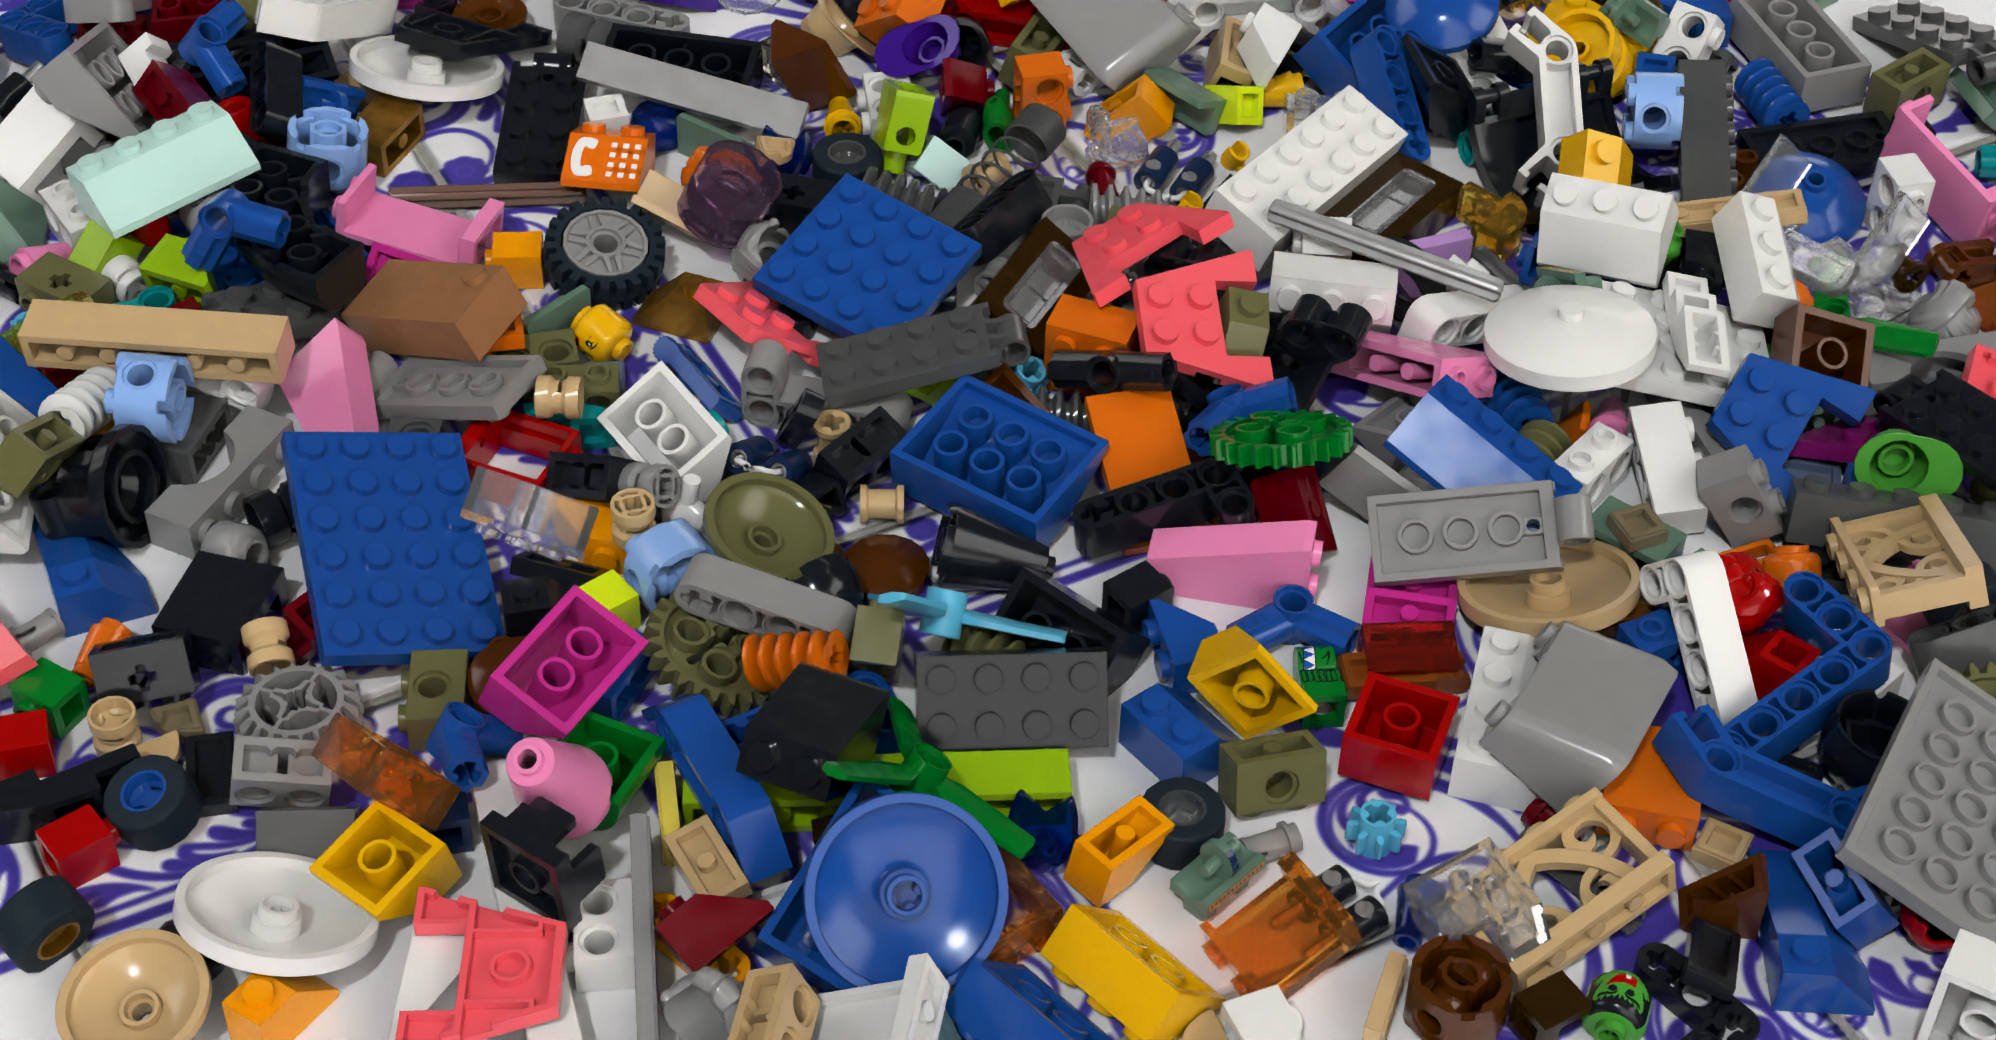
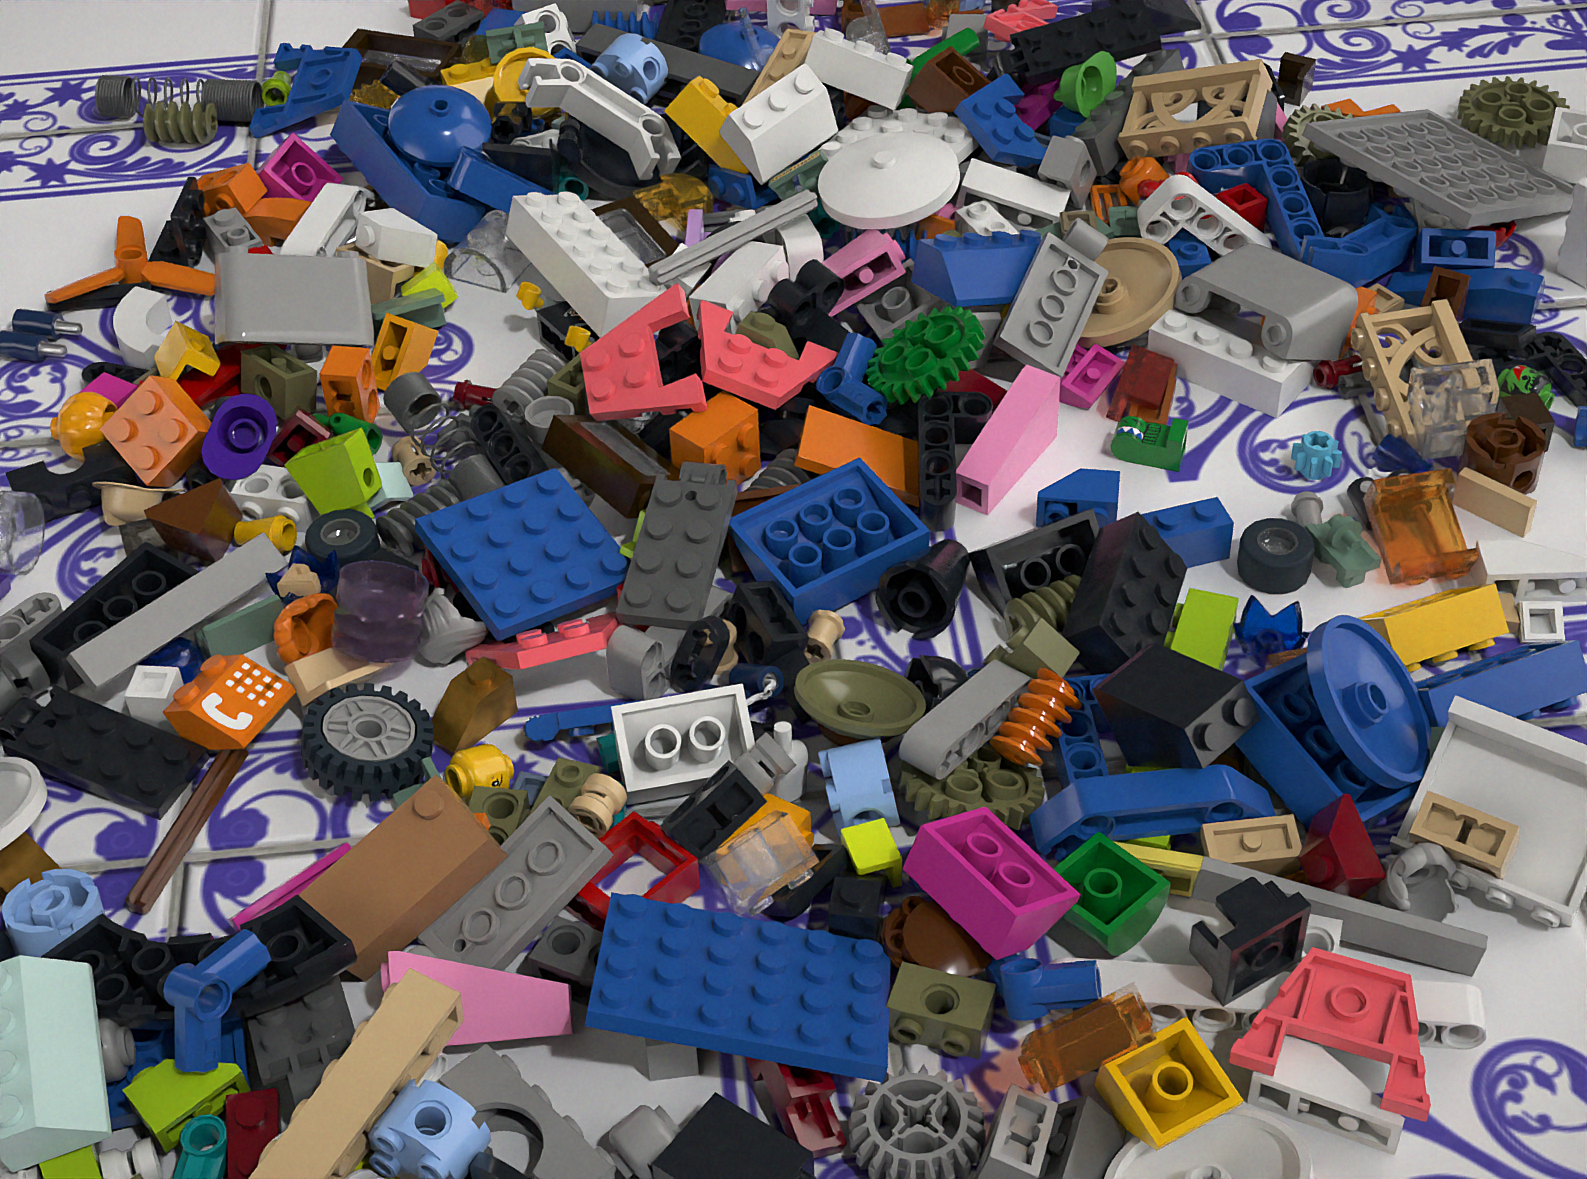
camera: 65 degrees left, 0 degrees up
(267, 644) = (833, 1126): tan wheel -> none
(271, 514) = (610, 1082): black wheel -> none
(414, 227) = (222, 882): bright pink panel -> none
(520, 255) = (320, 815): light orange brick -> none
(563, 775) = (1153, 909): bright pink cone -> none
(631, 514) = (802, 787): tan wheel -> none
(889, 564) = (893, 648): reddish brown dish -> none
(926, 772) = (1250, 659): green piece -> none
(945, 613) = (1031, 601): medium azure piece -> none
(1115, 141) = (441, 366): clear hair -> none
(1116, 850) = (1303, 579): light orange slope -> none
(1129, 593) = (1014, 508): black brick -> none
(1131, 370) = (796, 413): black piece -> none
(1164, 161) = (484, 362): dark blue piece -> none
(1247, 684) = (1164, 457): yellow slope -> none
(1292, 758) = (1248, 484): olive brick -> none
(1296, 619) = (1077, 429): blue piece -> none
(1398, 735) = (1235, 410): red brick -> none
(1696, 324) = (915, 117): white slope -> none
(1946, 310) = (911, 33): light grey hair -> none

